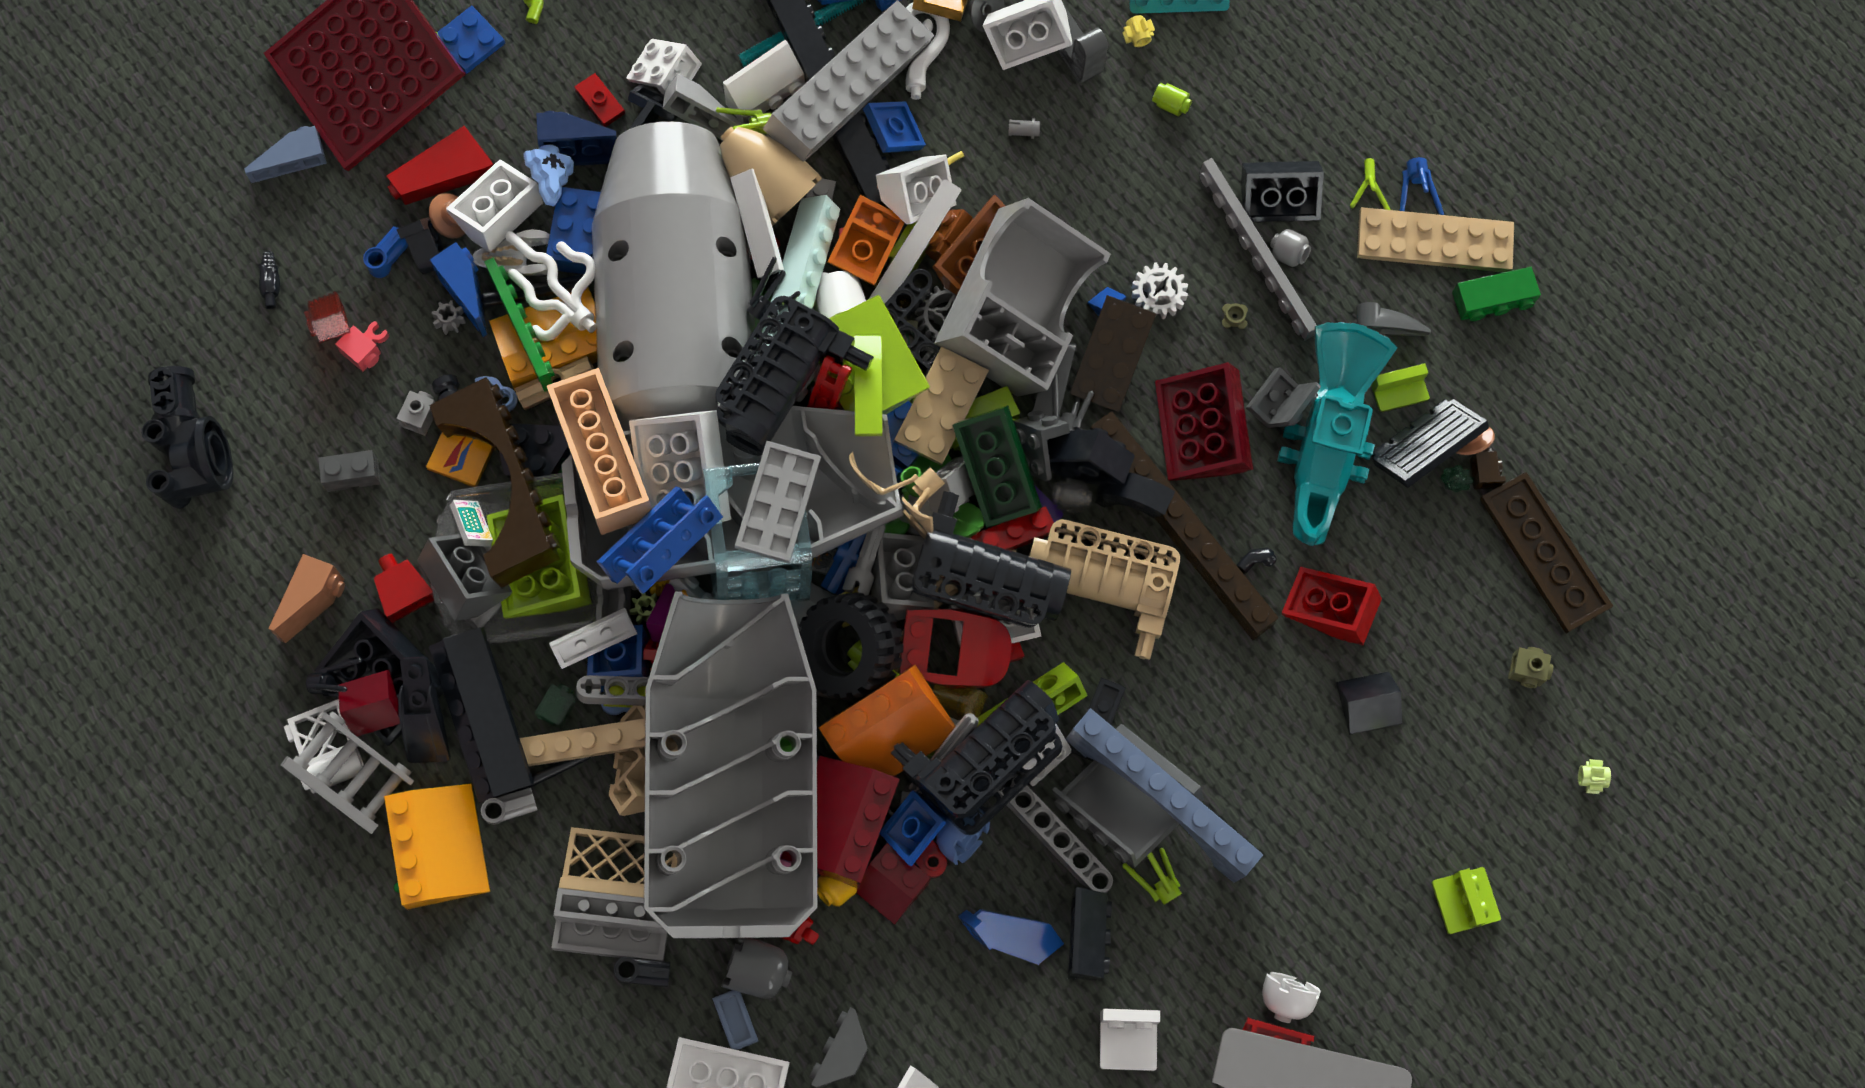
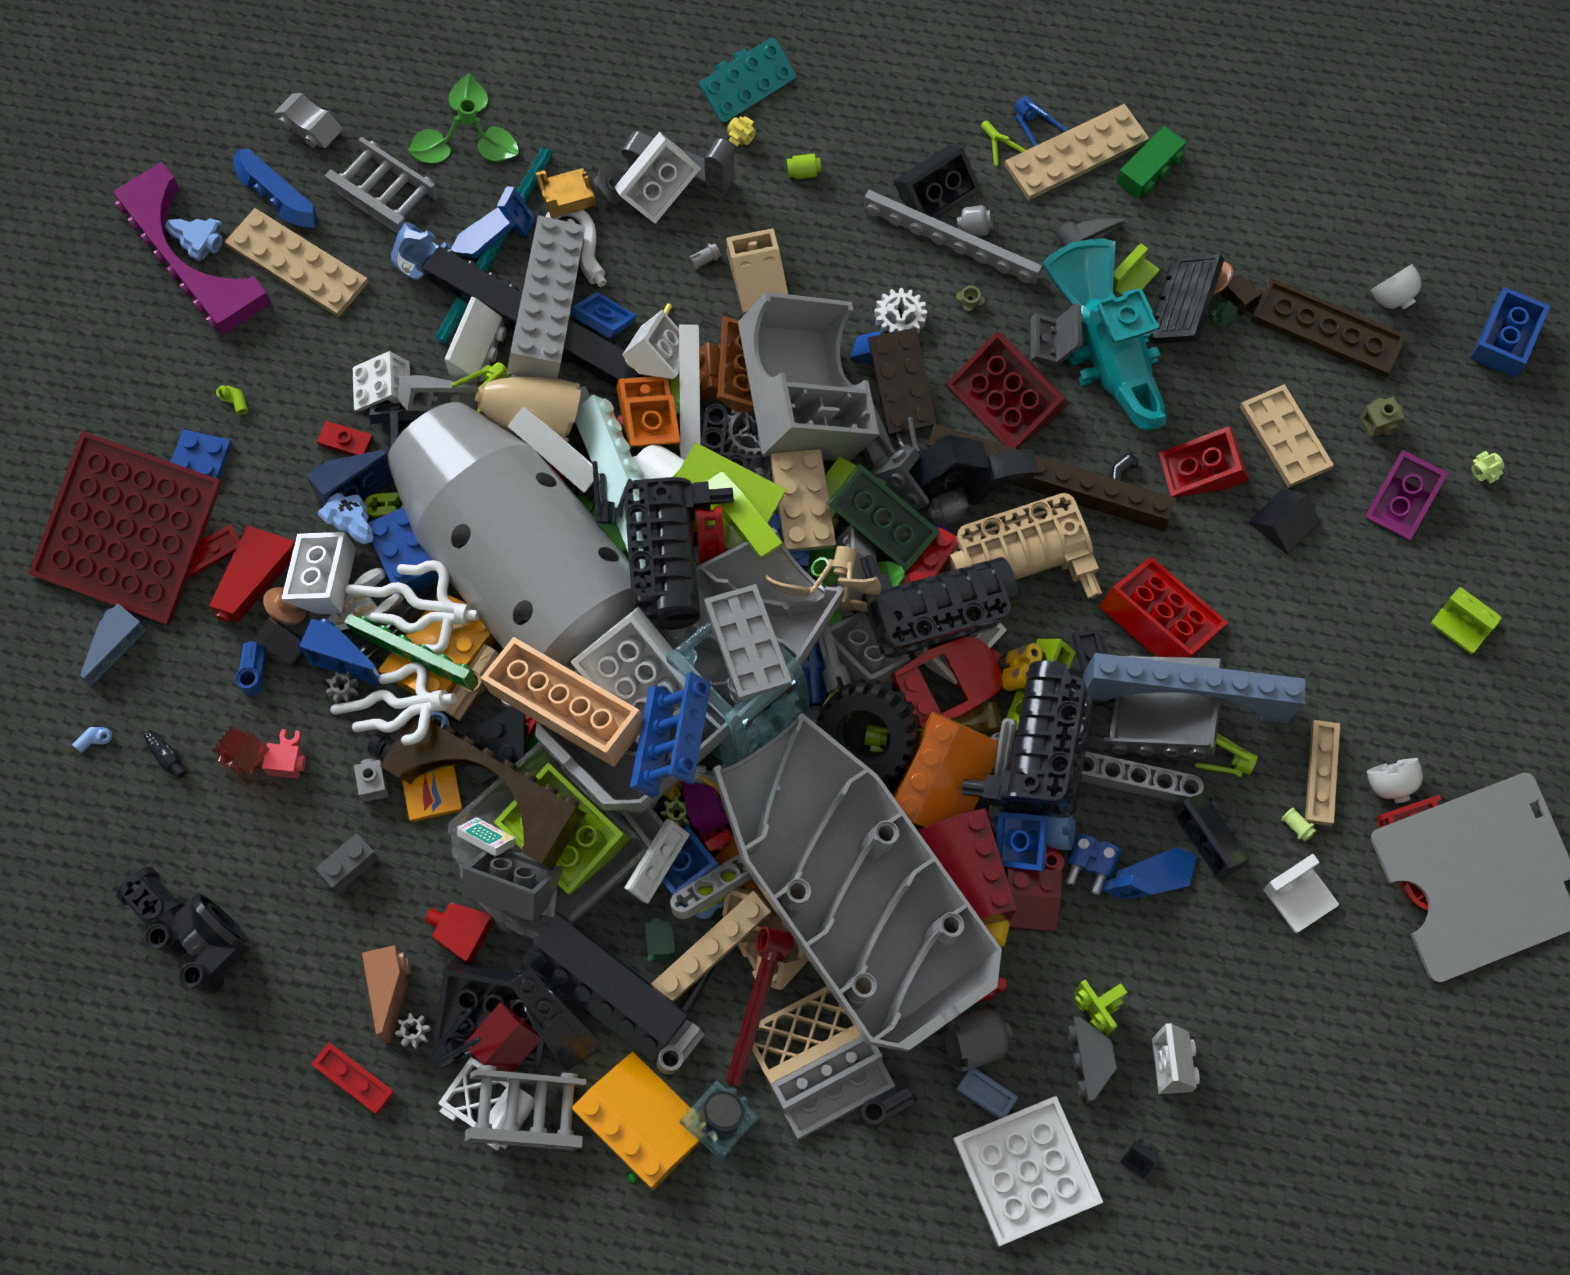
camera: 30 degrees left, 5 degrees down
(222, 226) = (92, 735): none -> light blue arm
(234, 652) = (353, 1078): none -> red plate
(314, 646) = (414, 1023): none -> white gear
(426, 128) = (214, 549): none -> red plate
(495, 375) = (421, 704): none -> white plant
(498, 888) = (719, 1119): none -> piece
(584, 184) = (385, 500): none -> lime beam
(631, 779) = (773, 947): none -> dark red piece
(888, 1014) = (1100, 1008): none -> lime bracket
(971, 884) = (1093, 857): none -> blue piece
(1029, 669) = (1019, 661): none -> yellow piece
(1059, 170) = (755, 266): none -> tan slope
(1173, 977) = (1298, 824): none -> yellowish green pin
(1194, 712) = (1162, 612): none -> red slope
(1229, 947) = (1322, 773): none -> tan plate
(1429, 626) = (1286, 436): none -> tan plate
(1498, 752) = (1406, 494): none -> magenta slope
(1638, 559) = (1398, 289): none -> white cylinder
(1713, 666) = (1510, 332): none -> blue brick

